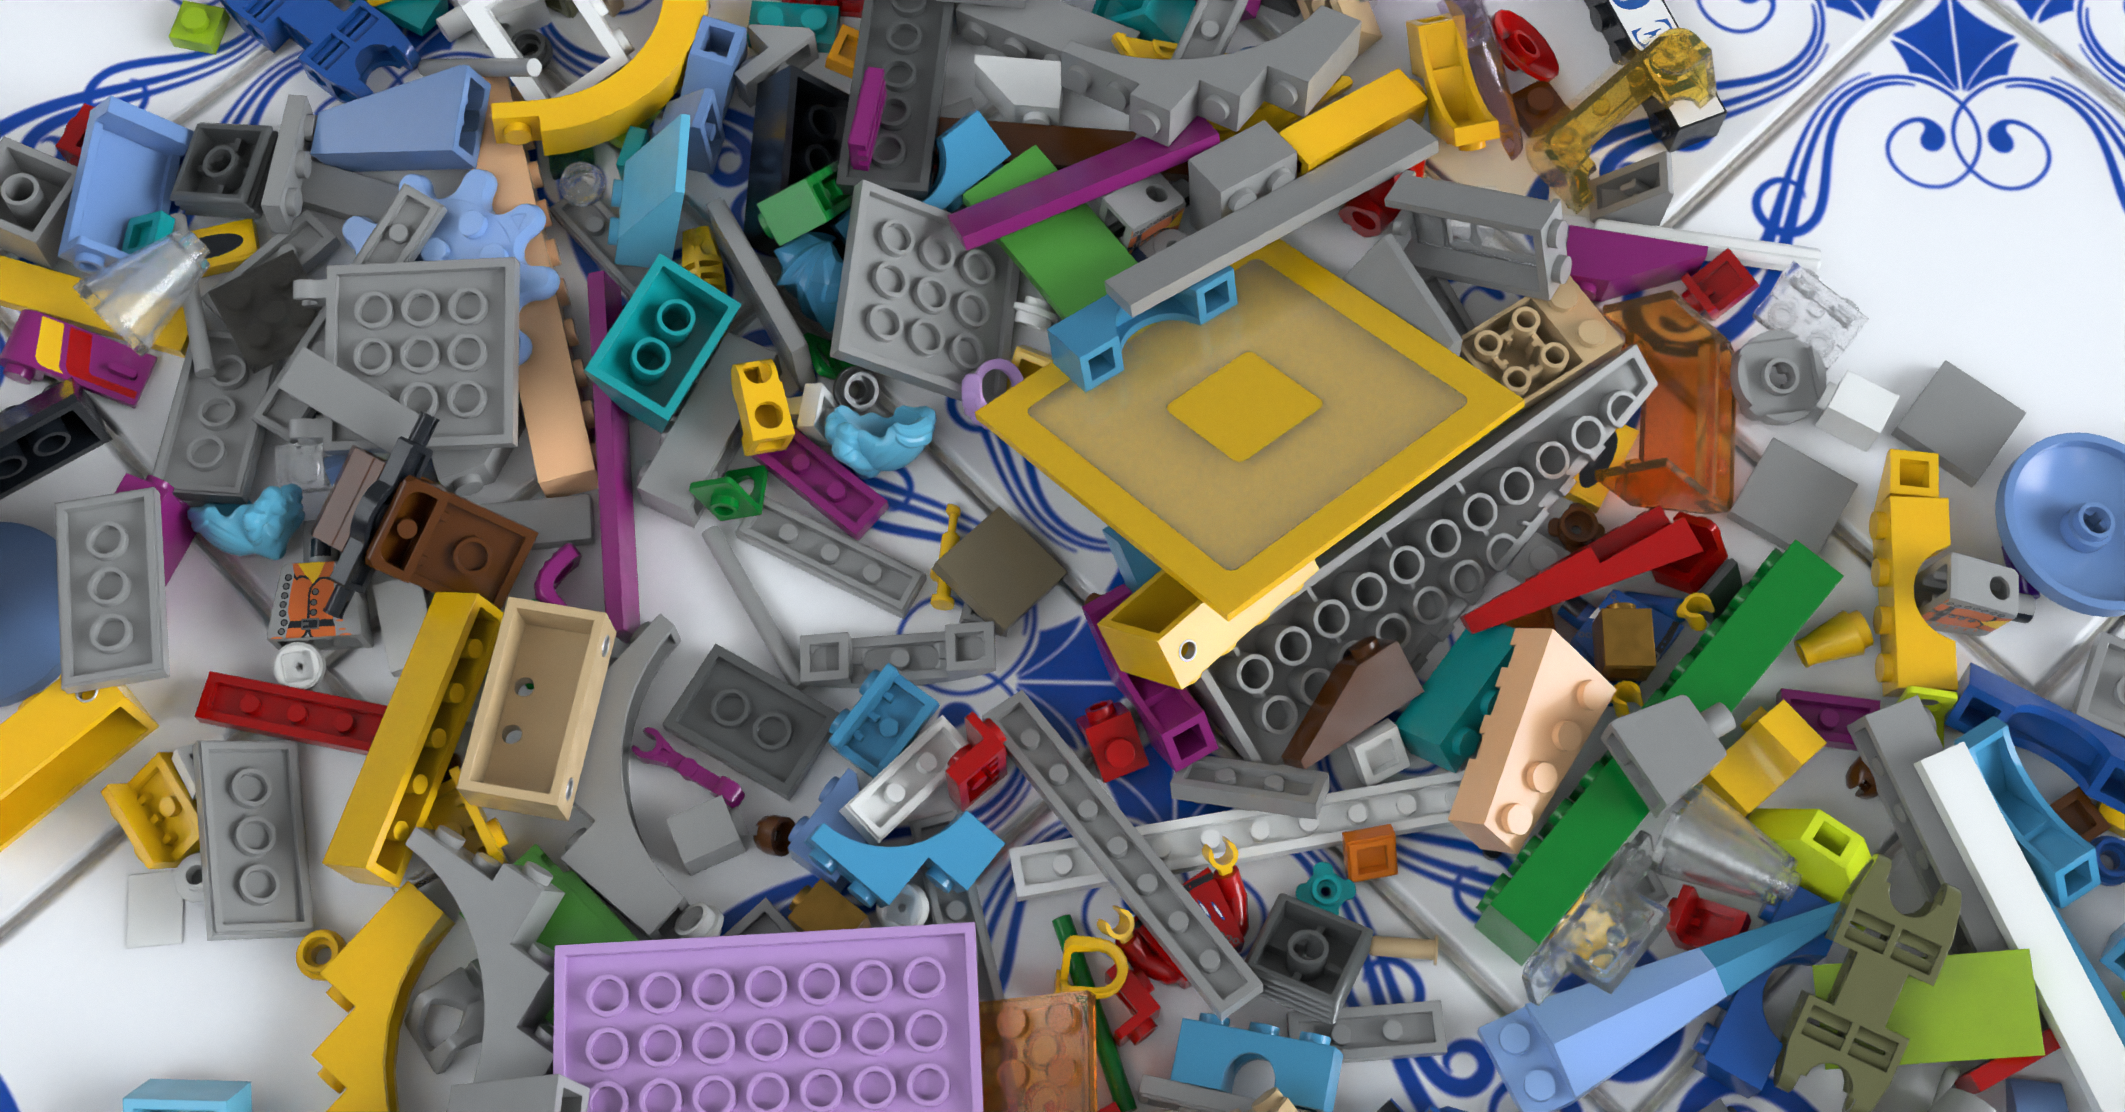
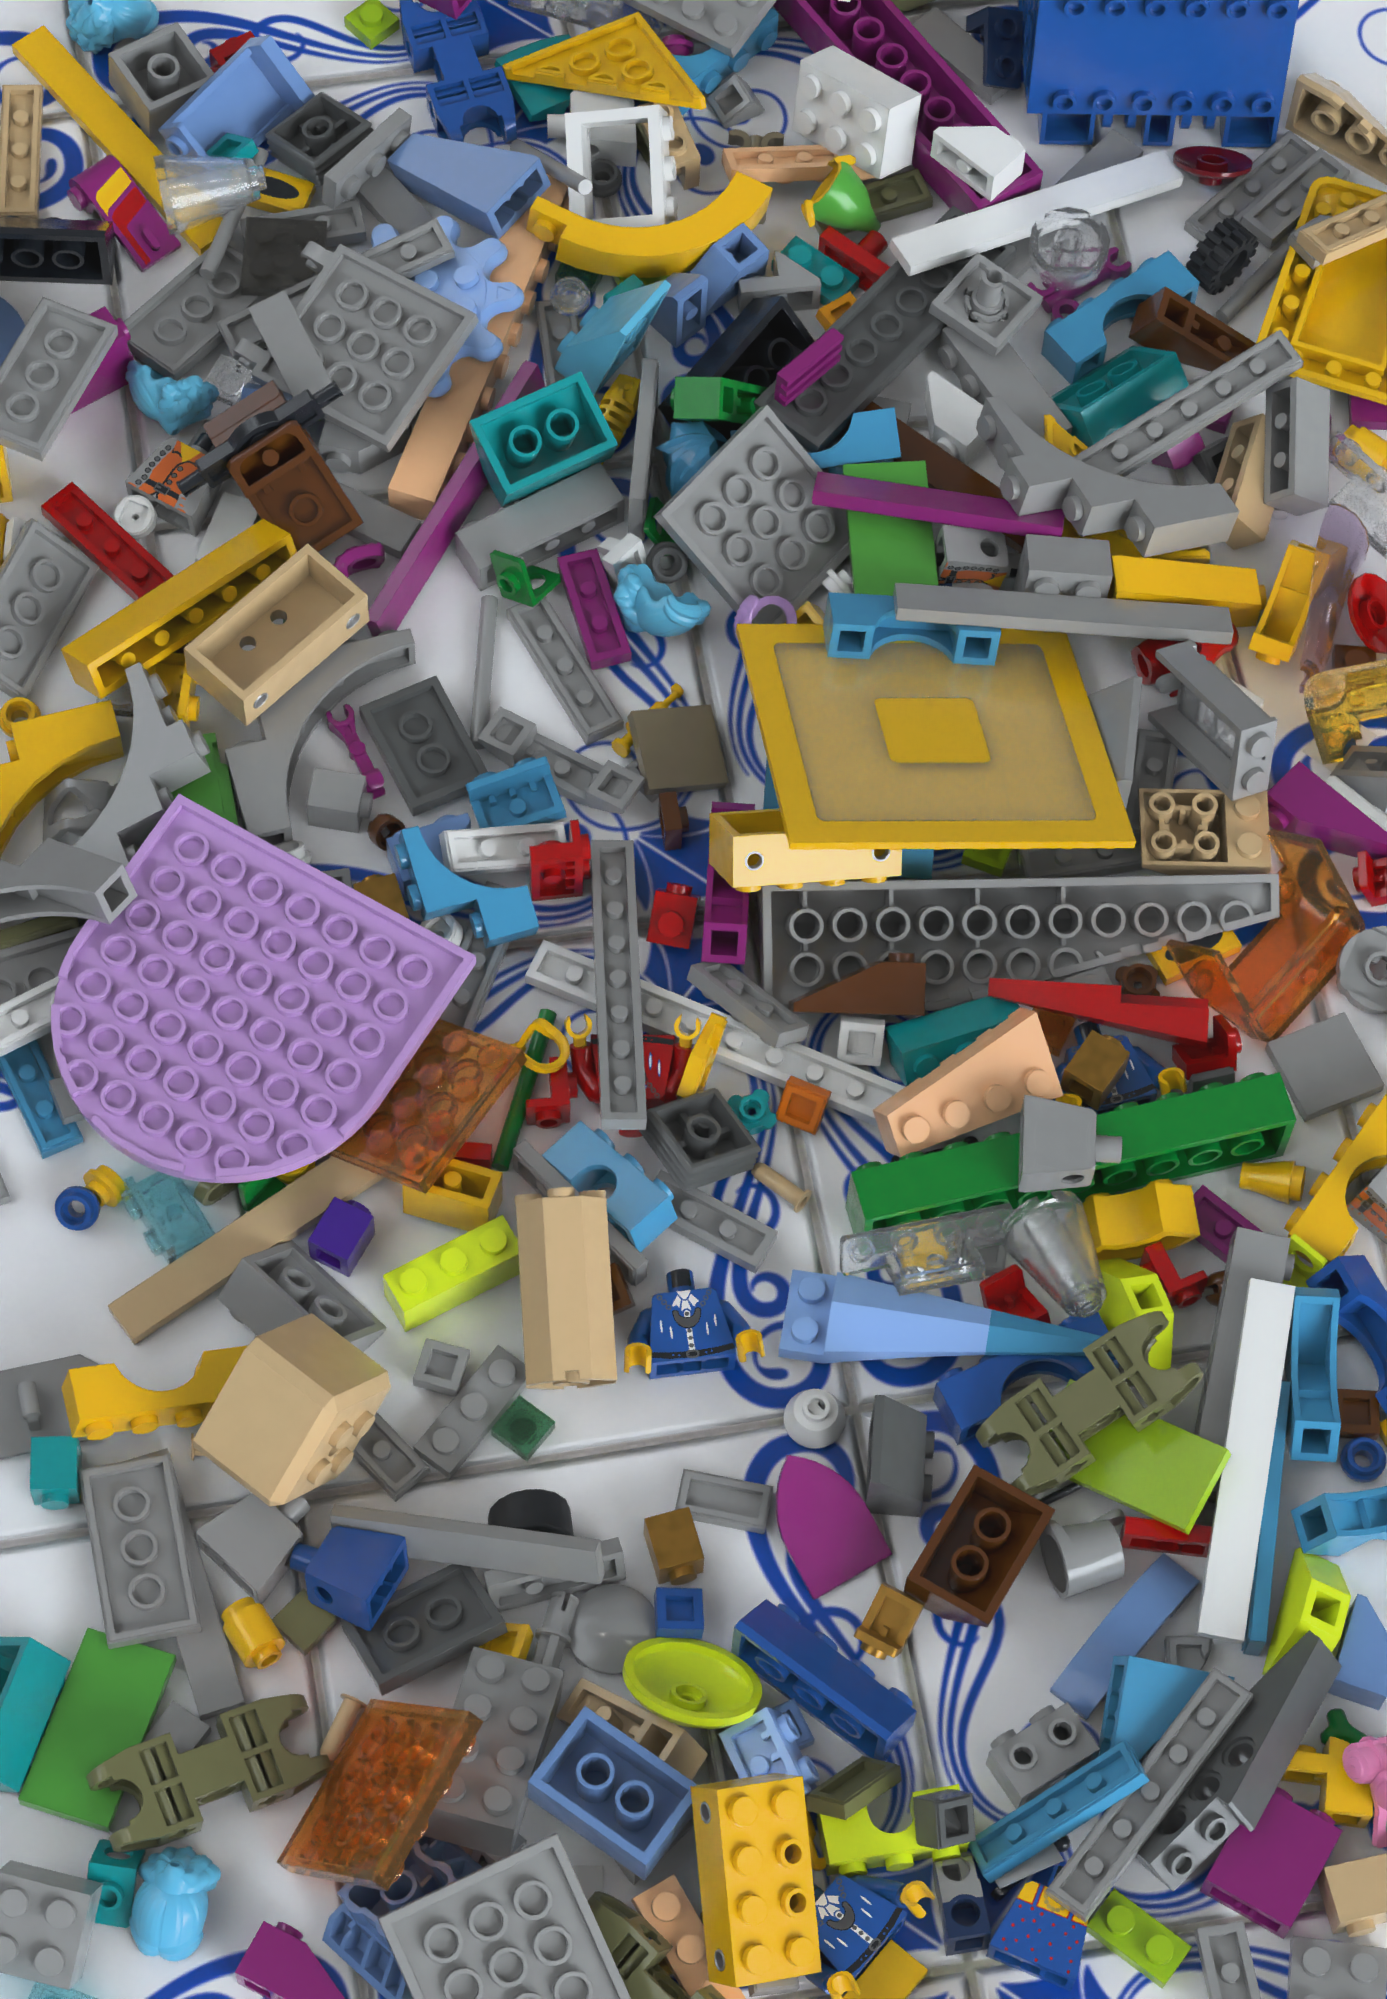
camera: 30 degrees right, 5 degrees down
(761, 407) = (582, 528): yellow leg -> none
(1043, 645) = (672, 820): none -> reddish brown plate
(1250, 871) = (702, 1056): none -> yellow tile
(1804, 794) = (1178, 1291): none -> red bracket

